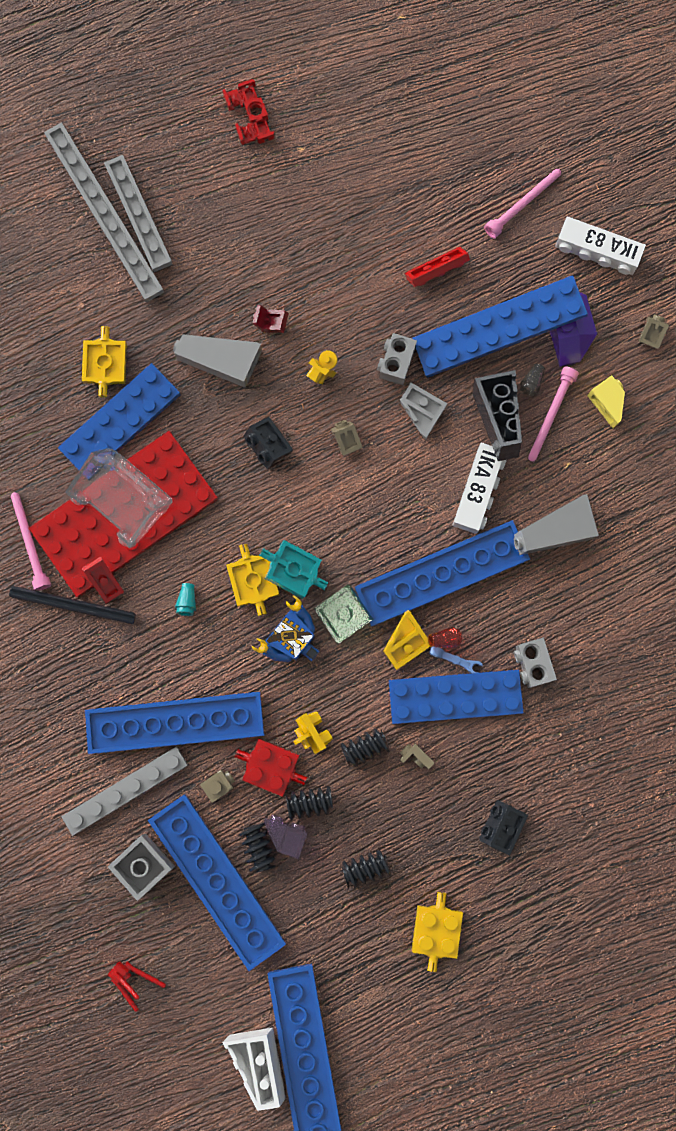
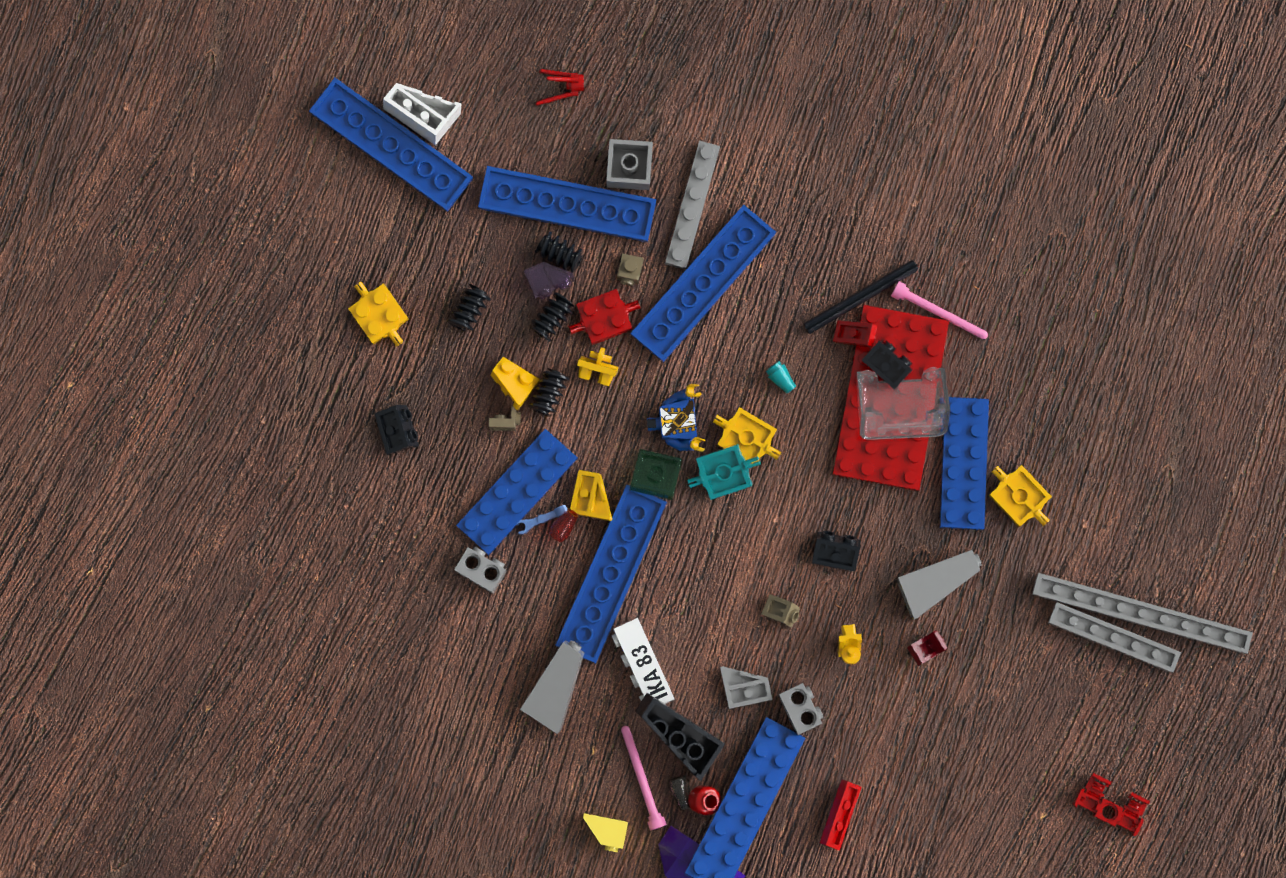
camera: 135 degrees right, 0 degrees up
(102, 534) = (888, 364): none -> black bracket
(383, 780) = (514, 381): none -> yellow wing
(523, 357) = (704, 800): none -> red head

